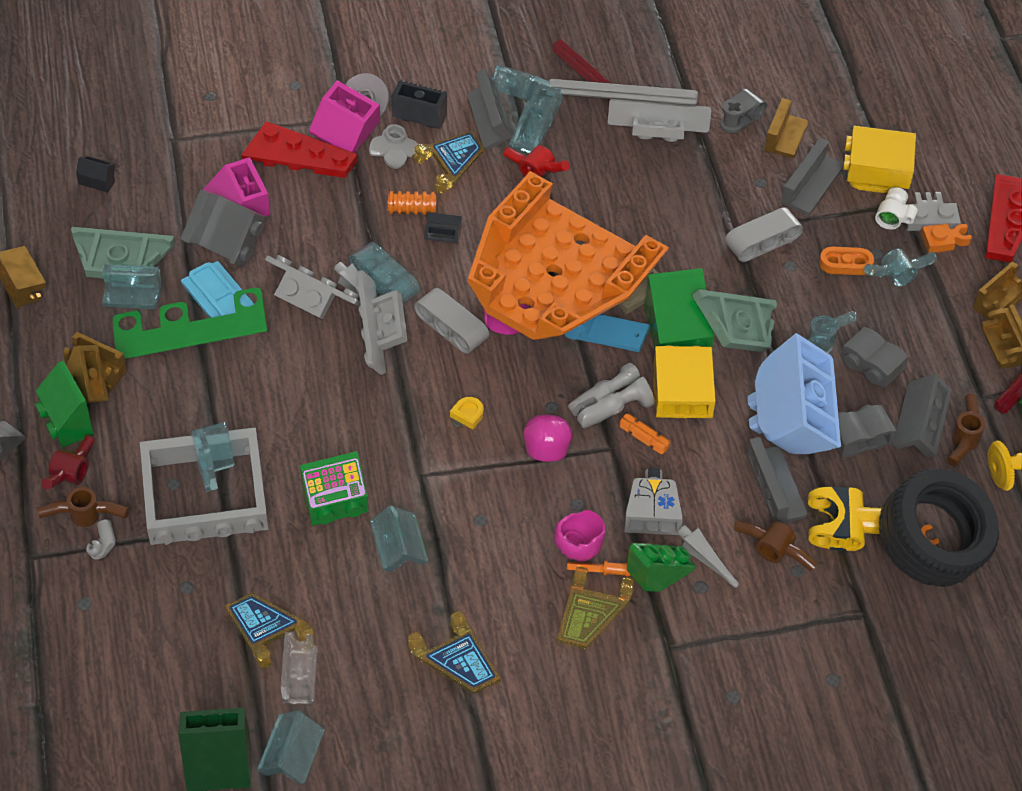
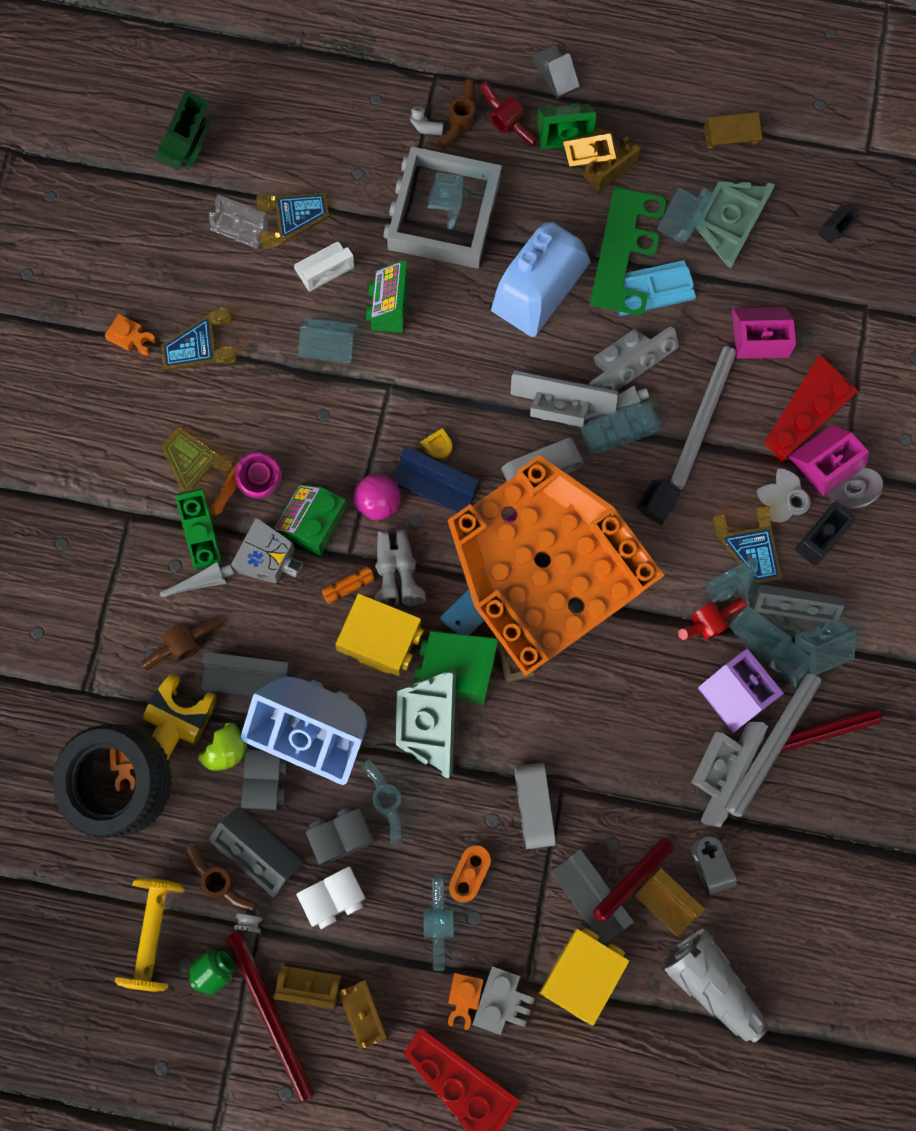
camera: 110 degrees right, 20 degrees up
(223, 227) = (736, 298): dark grey panel -> none
(253, 377) = (540, 278): none -> light blue hips
(291, 746) = (173, 196): clear light blue panel -> none
(315, 572) = (324, 265): none -> white panel
(342, 221) = (703, 418): none -> light grey axle
(409, 202) = (701, 484): orange piece -> none
(476, 728) = (128, 333): none -> orange plate
(492, 149) = (739, 578): none -> clear light blue slope
(508, 401) = (434, 481): none -> dark blue panel
(588, 125) = (740, 690): none -> slope
(597, 481) = (311, 517): none -> green slope
(787, 147) = (632, 880): none -> dark red axle
(830, 88) = (706, 974): none -> light grey cone
(853, 466) = (226, 749): none -> lime hair
(894, 210) = (514, 956): white piece -> none
(926, 346) = (330, 897): none -> white brick
(985, 397) = (249, 922): none -> light grey bush

